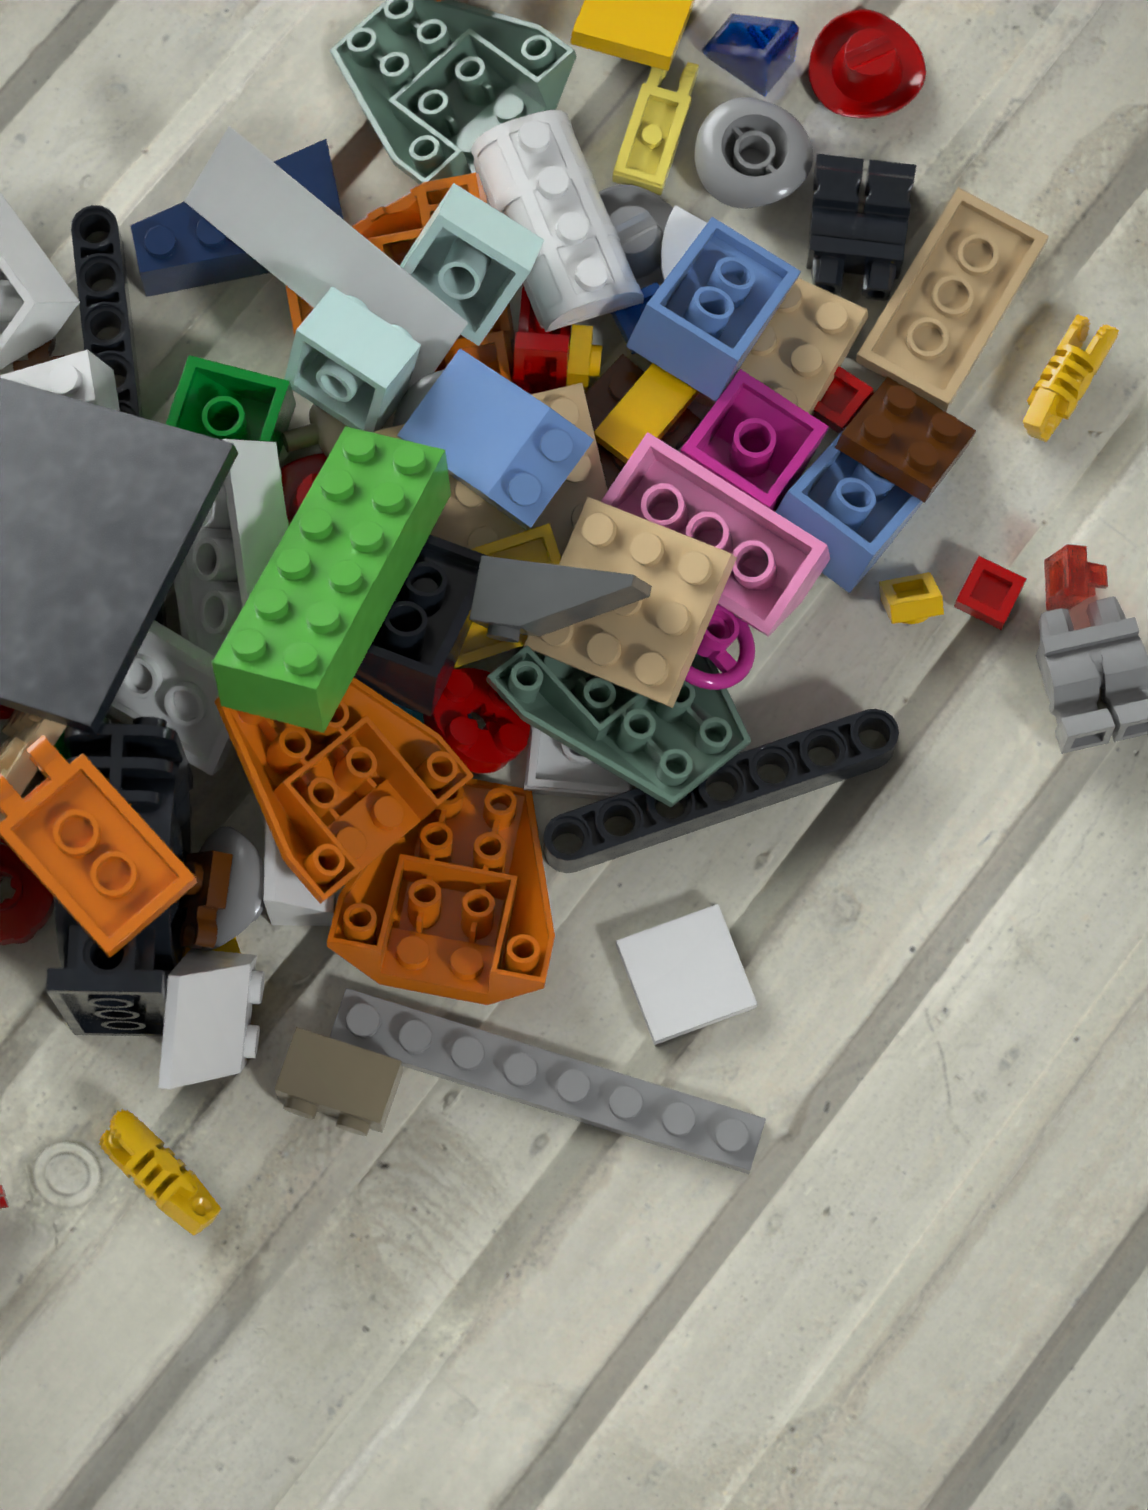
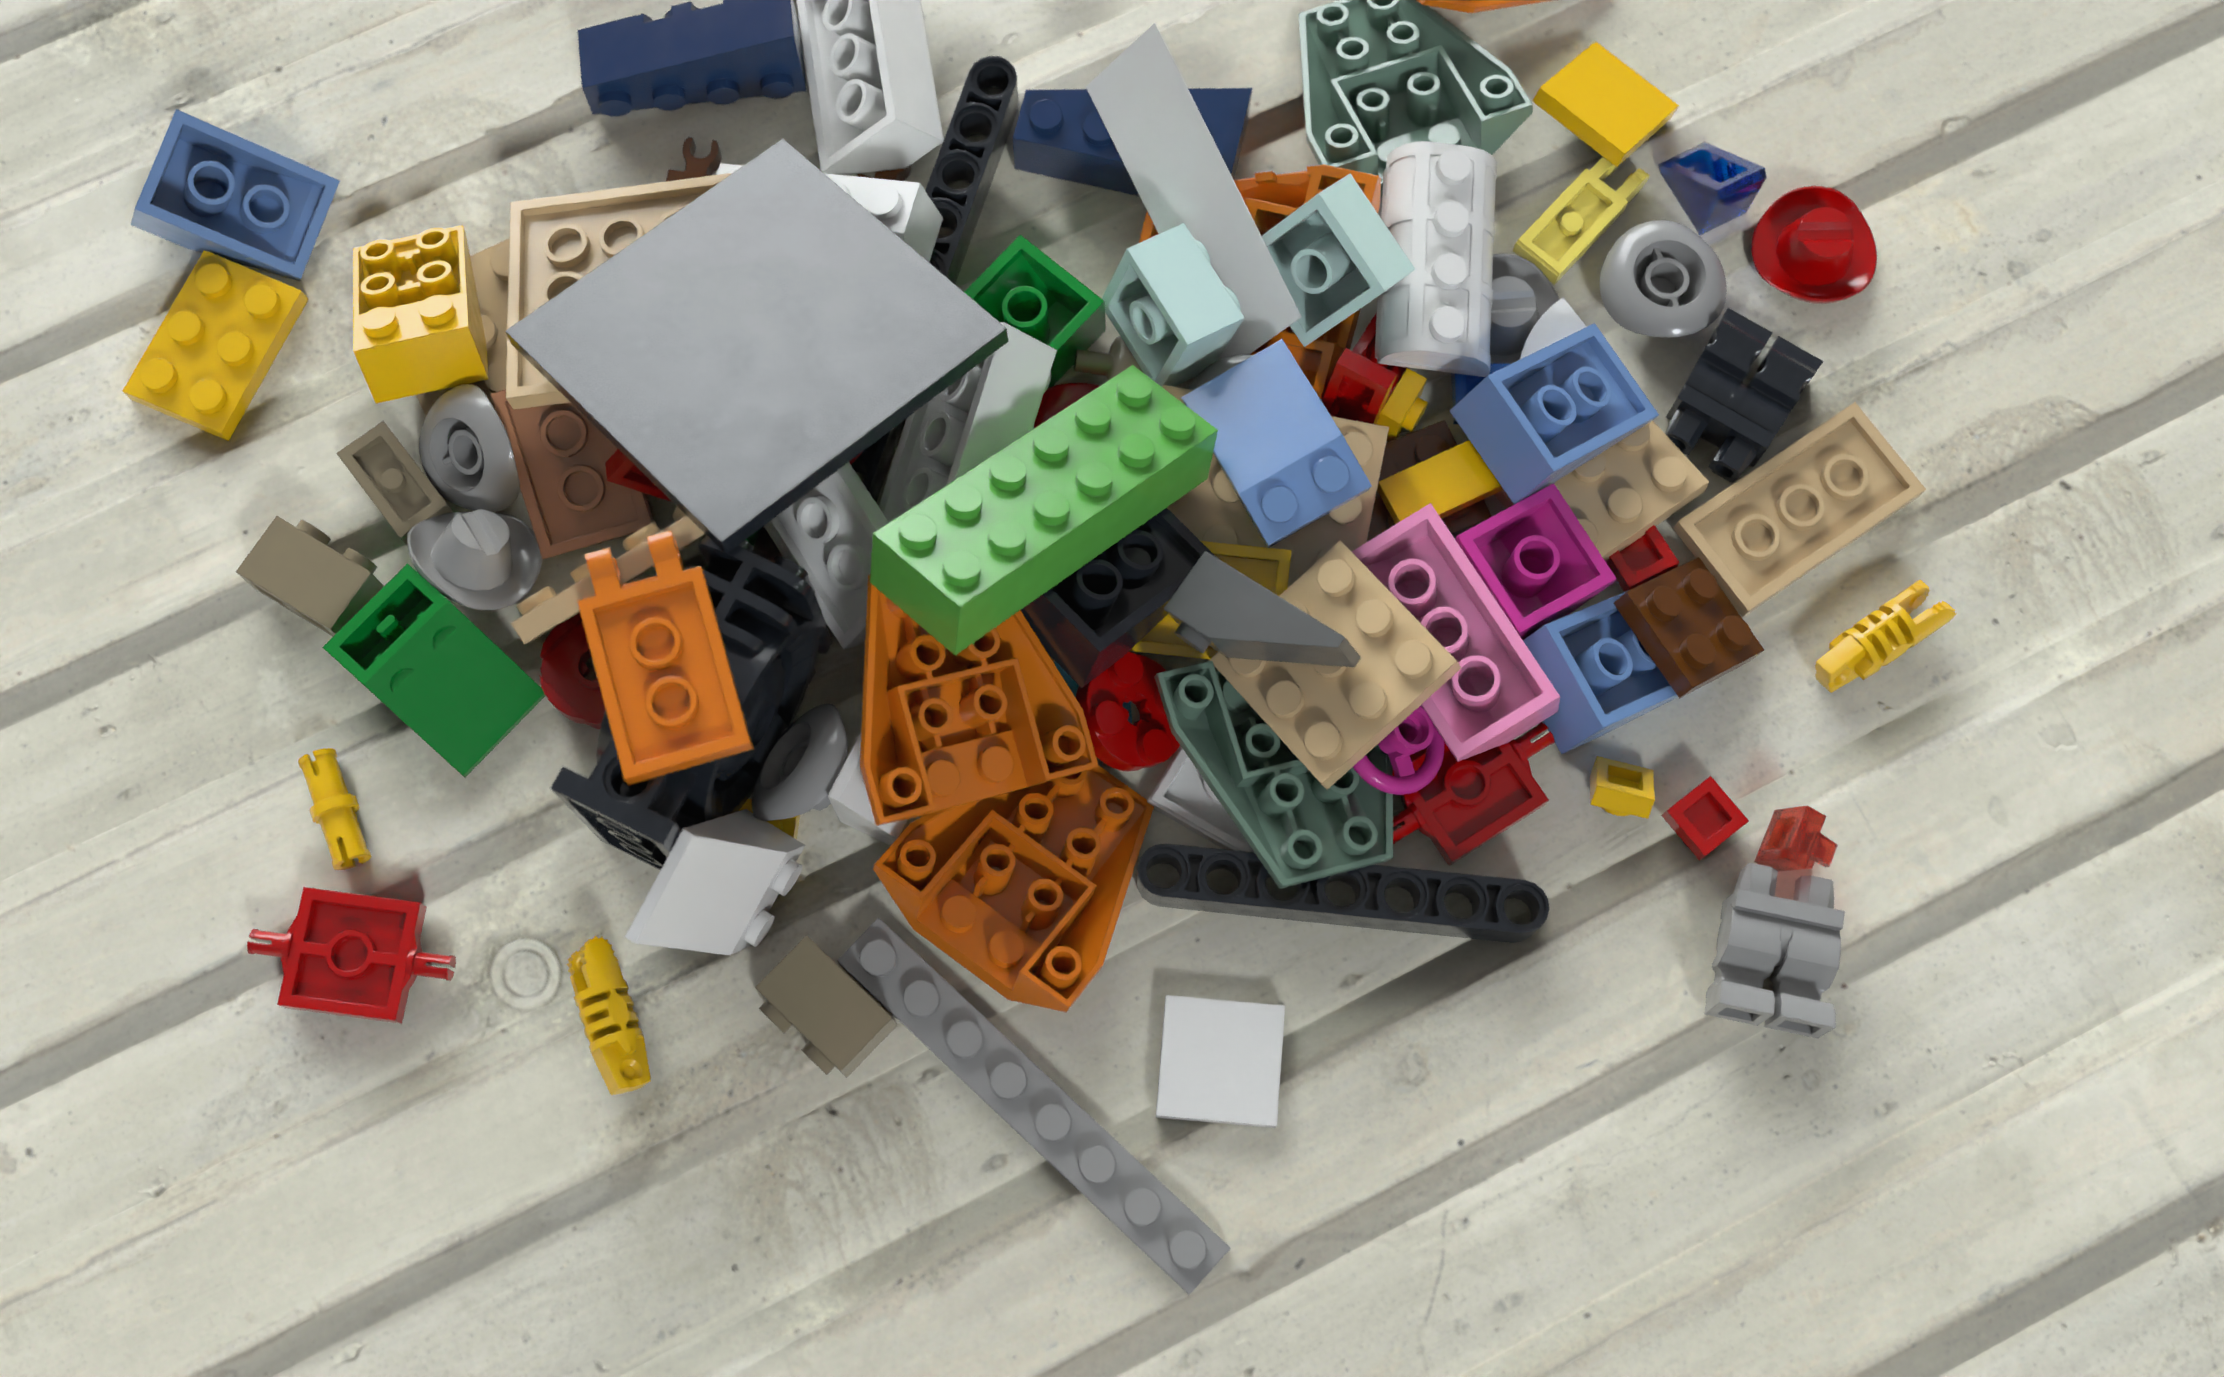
camera: 25 degrees right, 0 degrees up
(205, 897) = (777, 759): reddish brown plate -> none
(794, 660) = (1474, 797): none -> red plate

